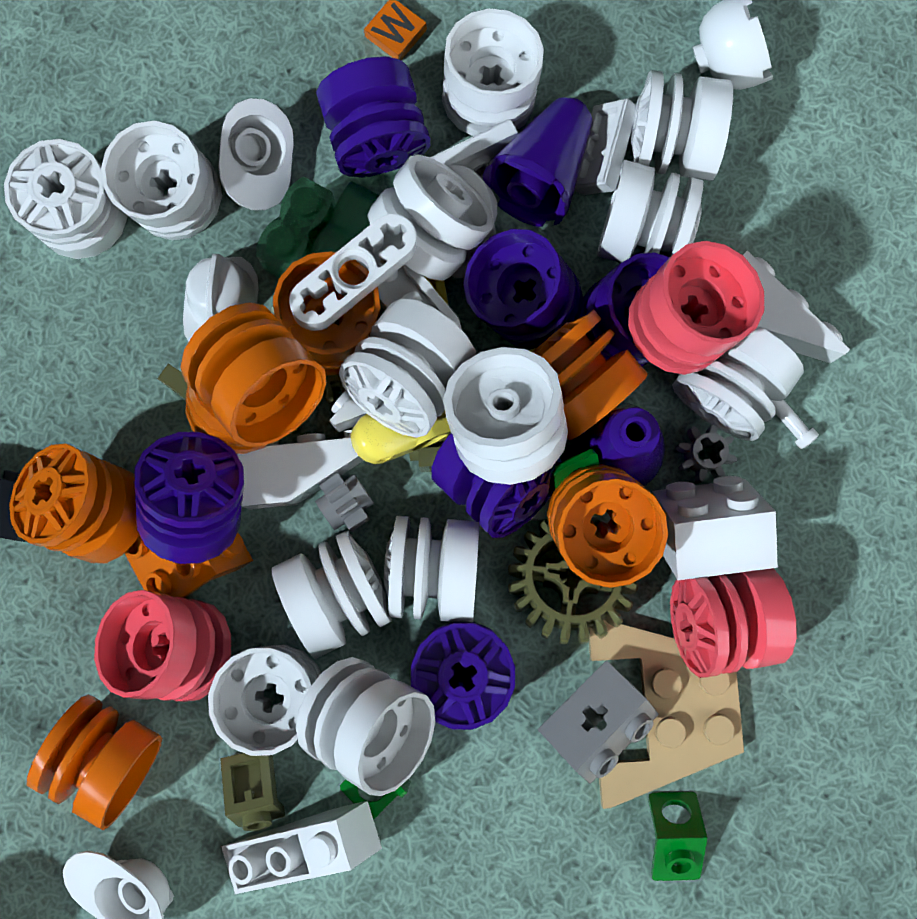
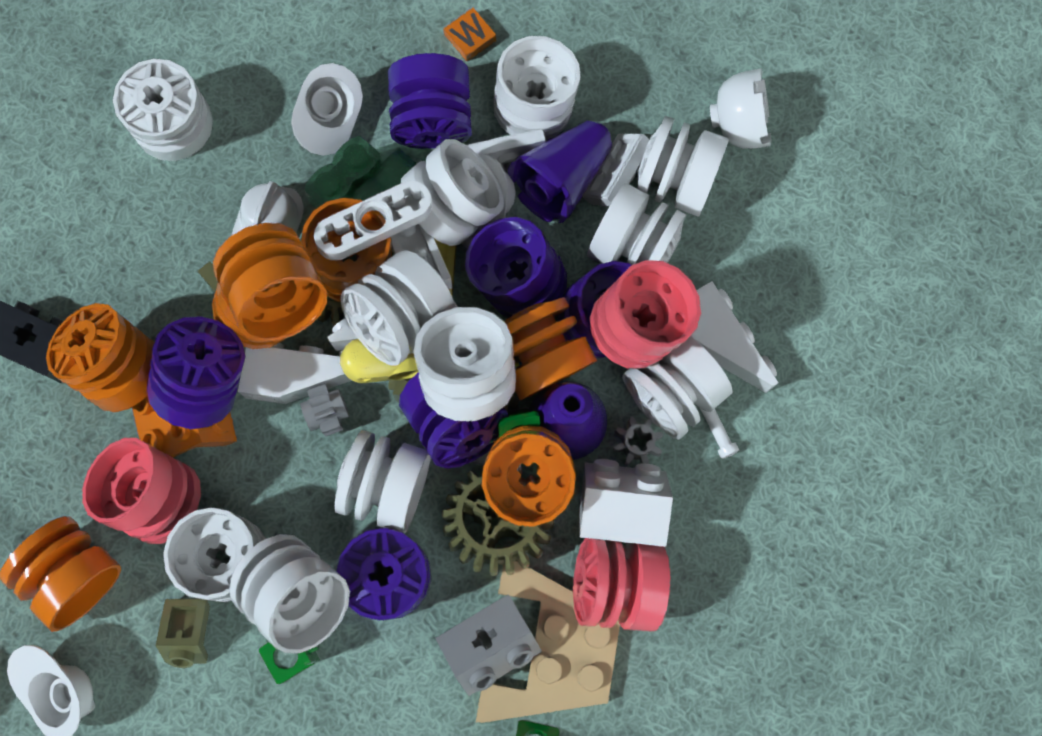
camera: 10 degrees right, 5 degrees down
(146, 163) = (237, 95): white wheel -> none
(303, 849) = (213, 692): white slope -> none
(327, 596) = (285, 483): white wheel -> none

